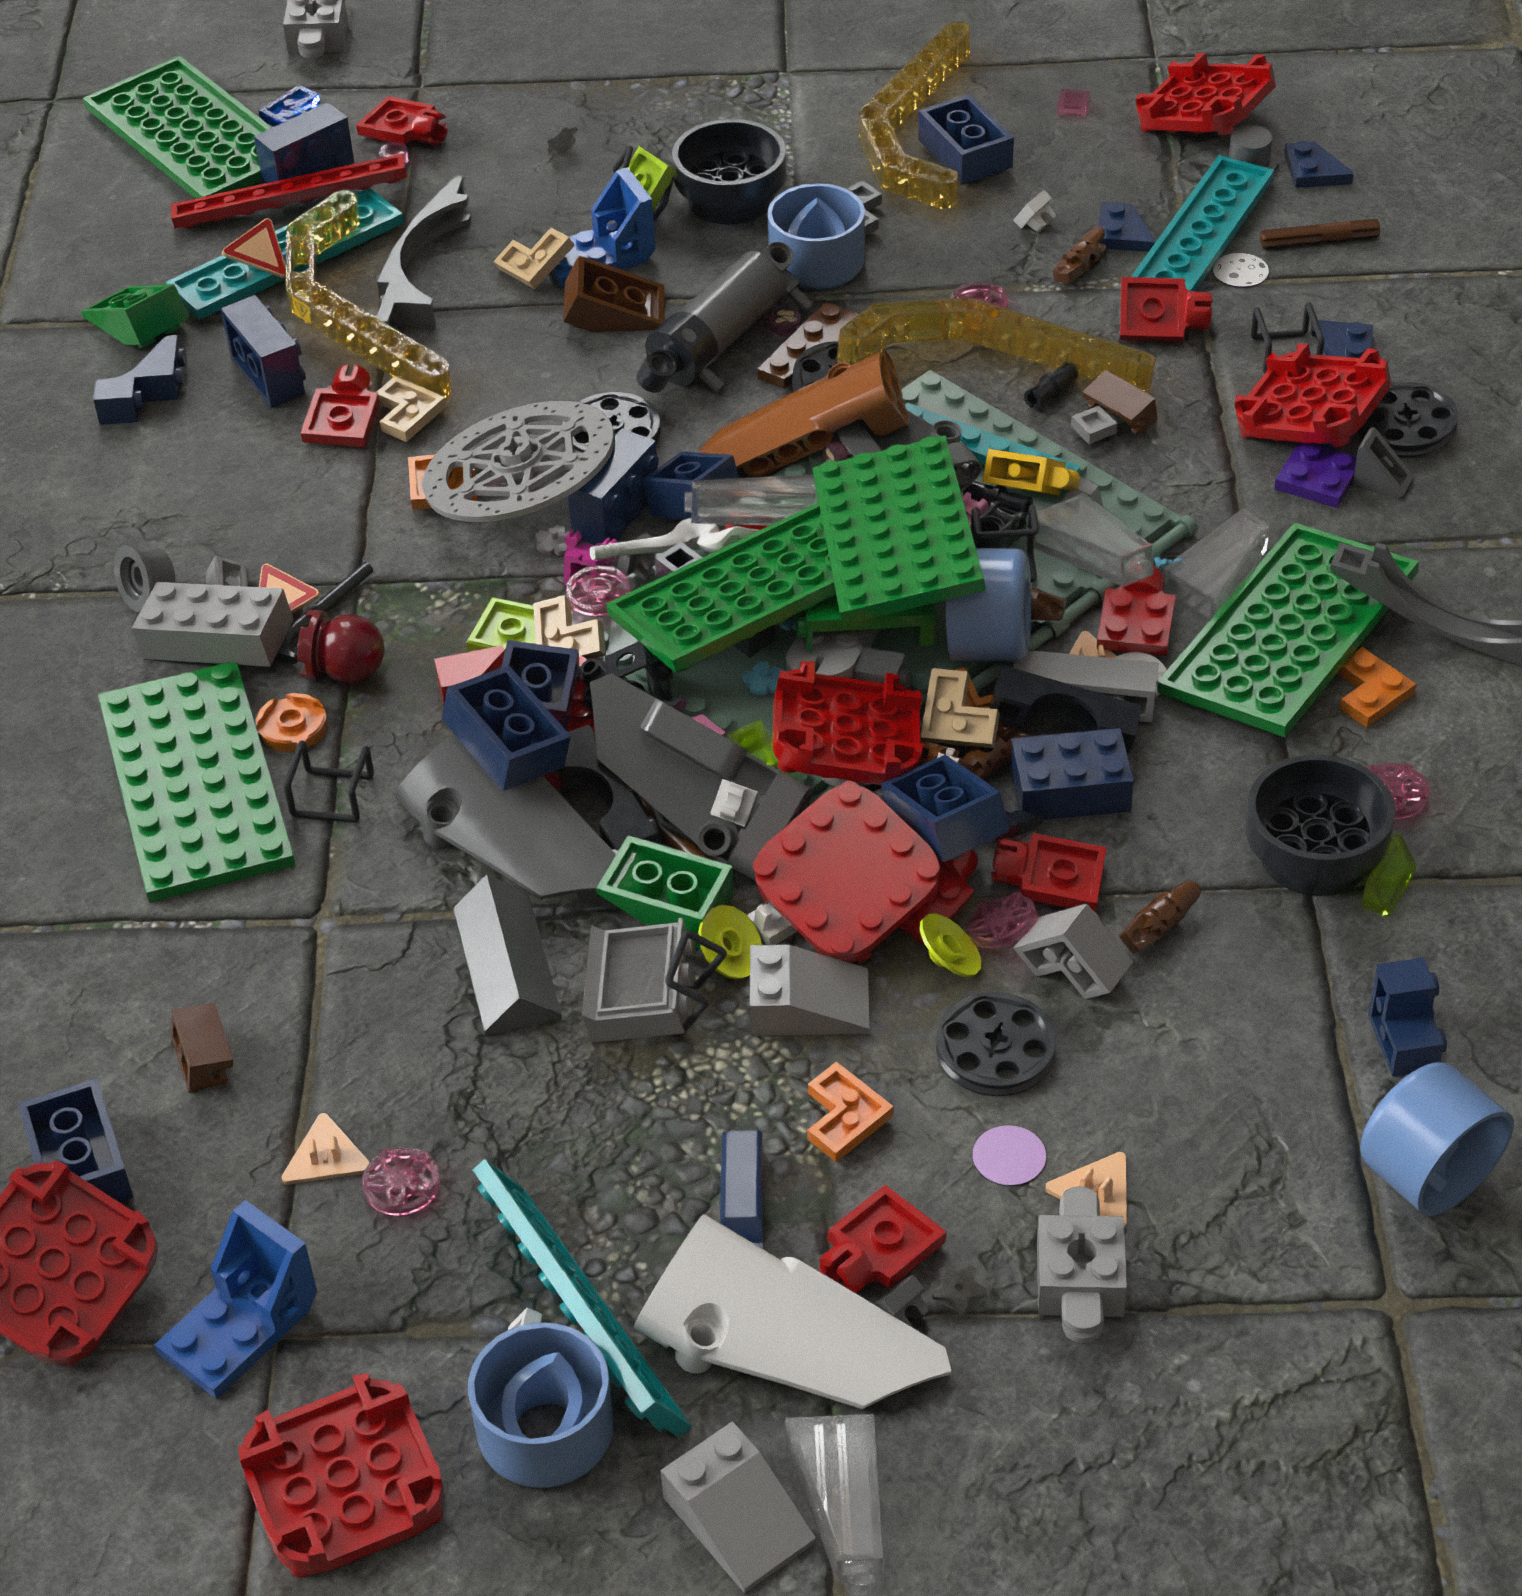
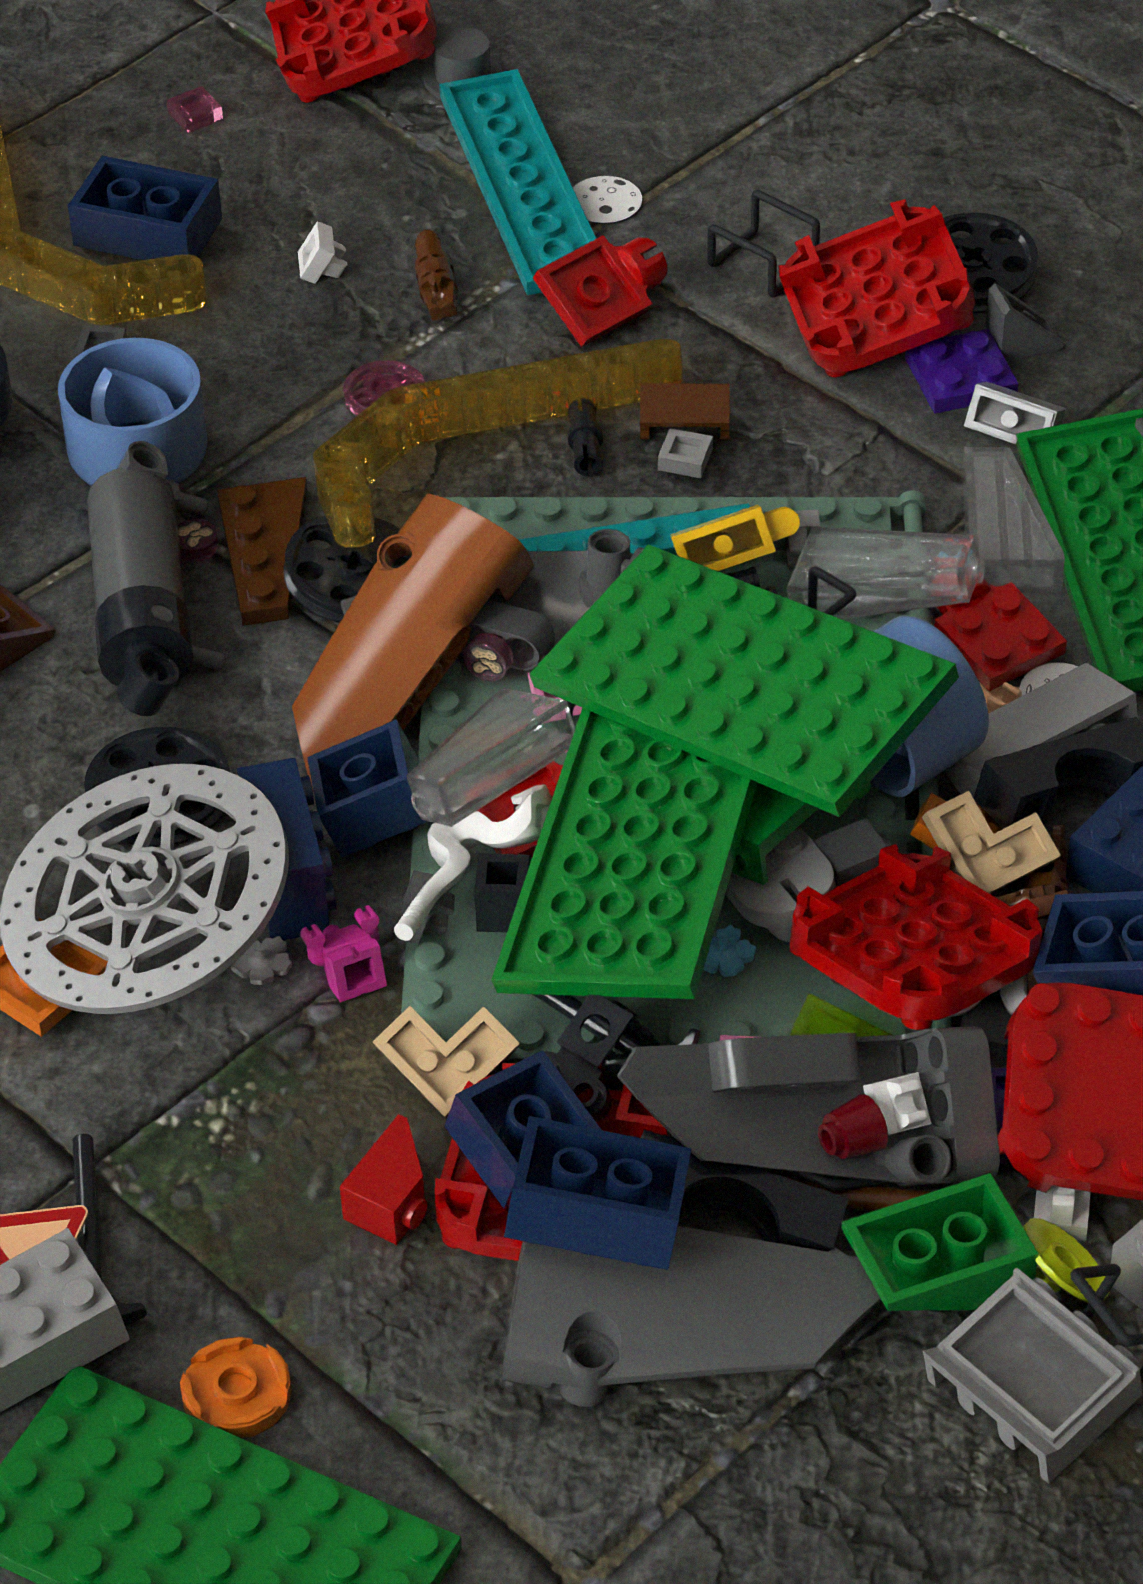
camera: 45 degrees left, 0 degrees up
(301, 750) = (331, 1405): black piece -> none
(343, 648) = (213, 1251): dark red tile -> none
(503, 622) = (351, 1096): lime tile -> none
(505, 957) = (854, 1468): dark grey slope -> none
(596, 589) = (417, 977): clear pink wheel -> none
(694, 798) = (854, 1129): none -> dark red hat
(1124, 228) = (415, 211): dark blue wing -> none
(1311, 508) = (1007, 412): none -> light grey slope
(1314, 166) = (539, 45): dark blue wing -> none
(1320, 233) = (640, 114): reddish brown axle -> none
(1345, 338) = (818, 202): dark blue wing -> none

